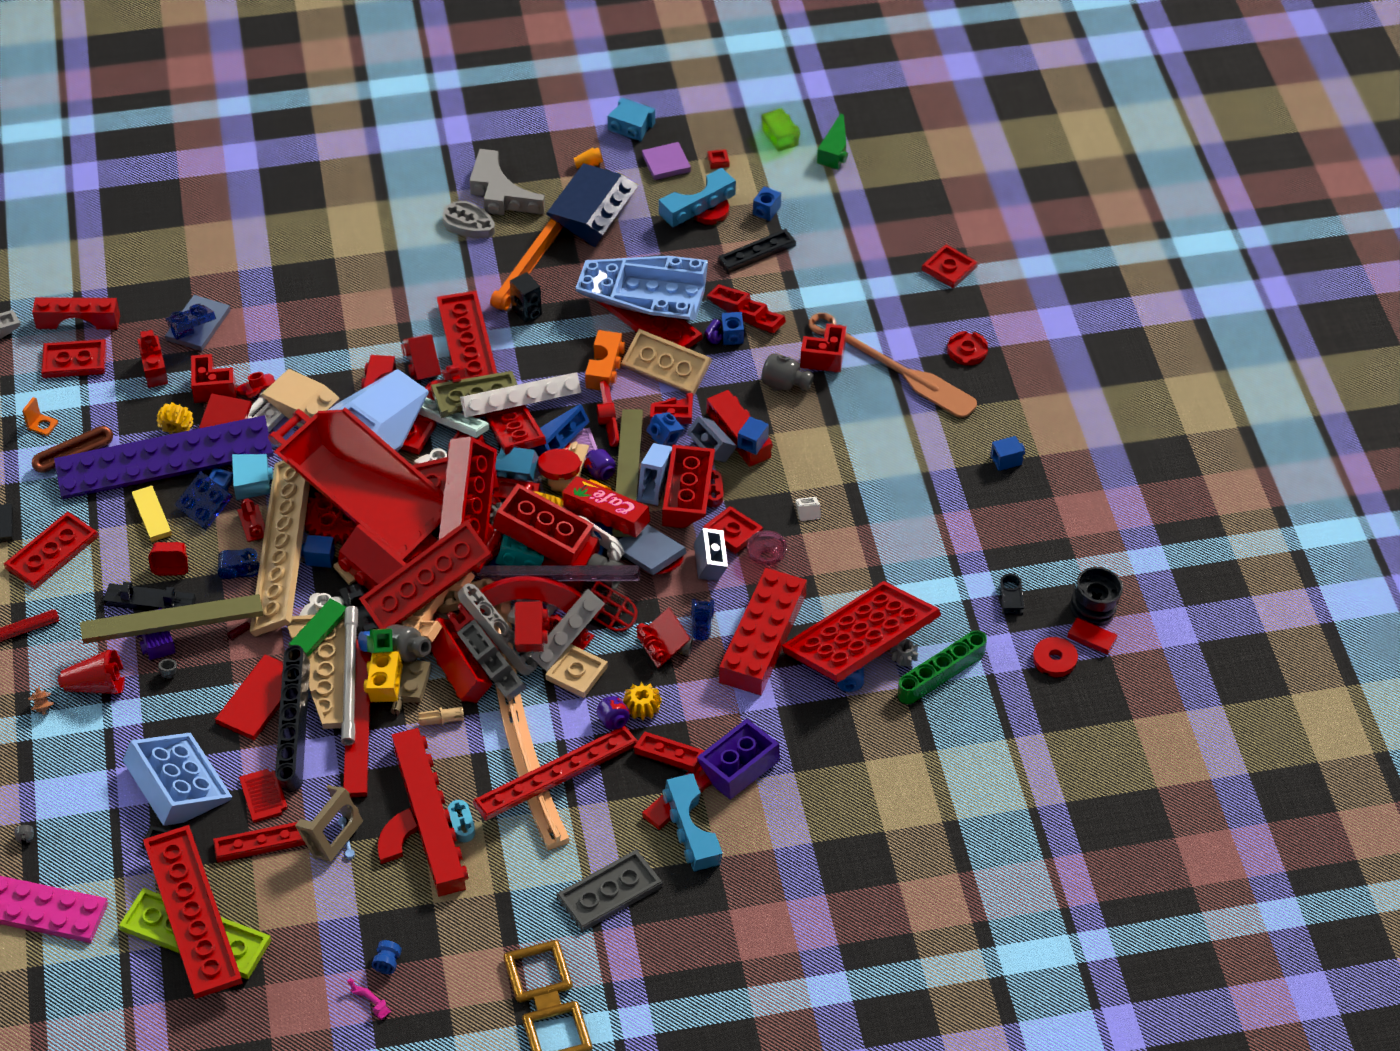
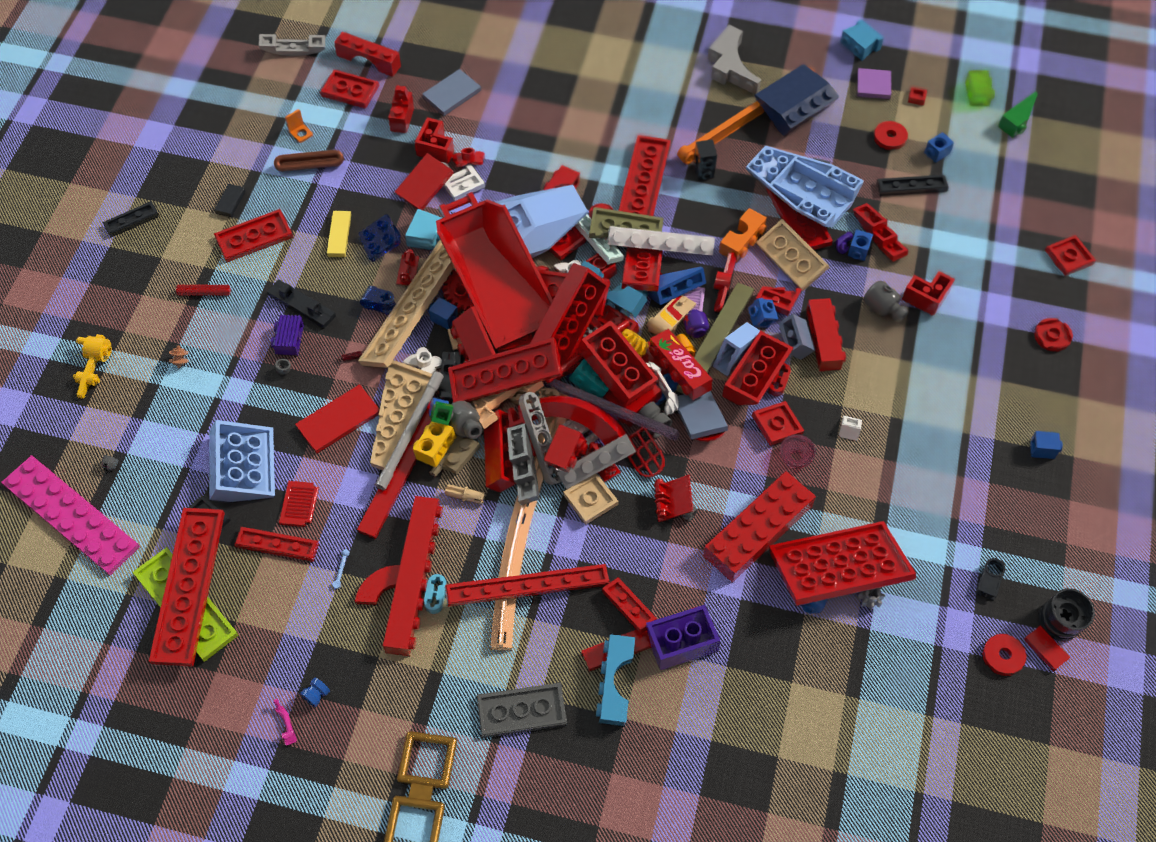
camera: 25 degrees right, 10 degrees up
(94, 675) = (227, 352): red cone -> none
(160, 457) = (366, 190): dark purple plate -> none
(168, 559) = (329, 276): red piece -> none
(171, 619) = (302, 328): olive tile -> none
(174, 418) = (392, 164): yellow gear -> none
(183, 322) = (437, 88): clear blue plate -> none
(222, 477) = (402, 224): blue tile -> none
(292, 718) = (349, 450): black beam -> none
(296, 392) = (491, 179): tan slope -> none
(313, 831) = (309, 557): dark tan panel -> none
(319, 626) = (407, 379): green tile -> none
(422, 355) = (600, 180): red brick -> none
(453, 373) = (616, 203): red plate -> none
(468, 220) = (700, 81): light grey piece -> none
(559, 464) = (661, 312): red tile -> none
(590, 157) = (814, 60): light orange cone -> none
(613, 712) = (600, 549): dark purple head -> none
(642, 701) = (629, 555): yellow gear -> none
(678, 207) = (863, 126): dark azure arch -> none
(702, 614) = (716, 490): clear blue piece -> none
(710, 554) = (747, 439): sand blue brick -> none
(753, 435) = (830, 347): blue brick -> none
(922, 383) = (1000, 352): nougat piece -> none
(941, 667) = (905, 617): green beam -> none

